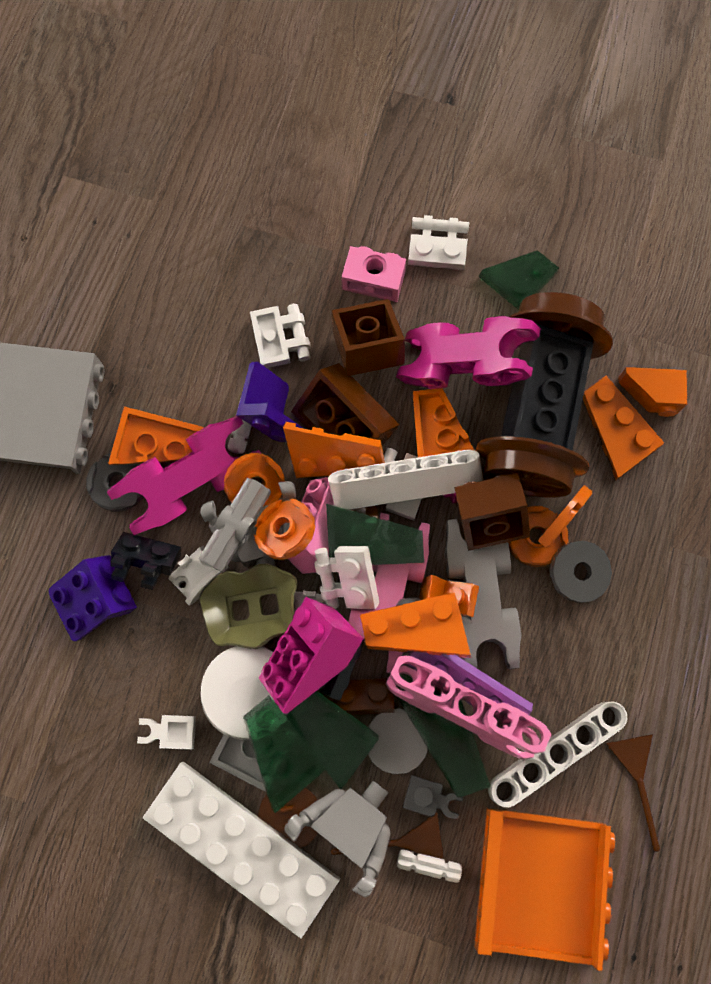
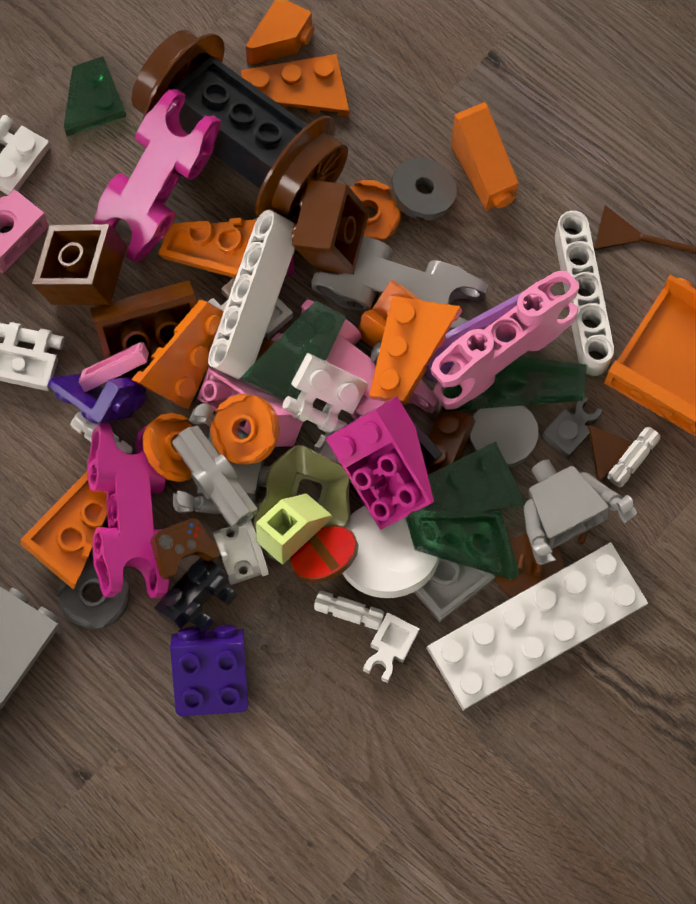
camera: 70 degrees left, 5 degrees down
(172, 524) = (180, 542): none -> reddish brown piece
(186, 683) = (349, 610): none -> white axle
(212, 642) = (325, 554): none -> red piece
(225, 605) = (290, 525): none -> yellowish green slope
(295, 404) = (113, 366): none -> bright pink tile
(565, 516) = (365, 174): orange tile -> none
(634, 609) = (484, 157): none -> orange slope

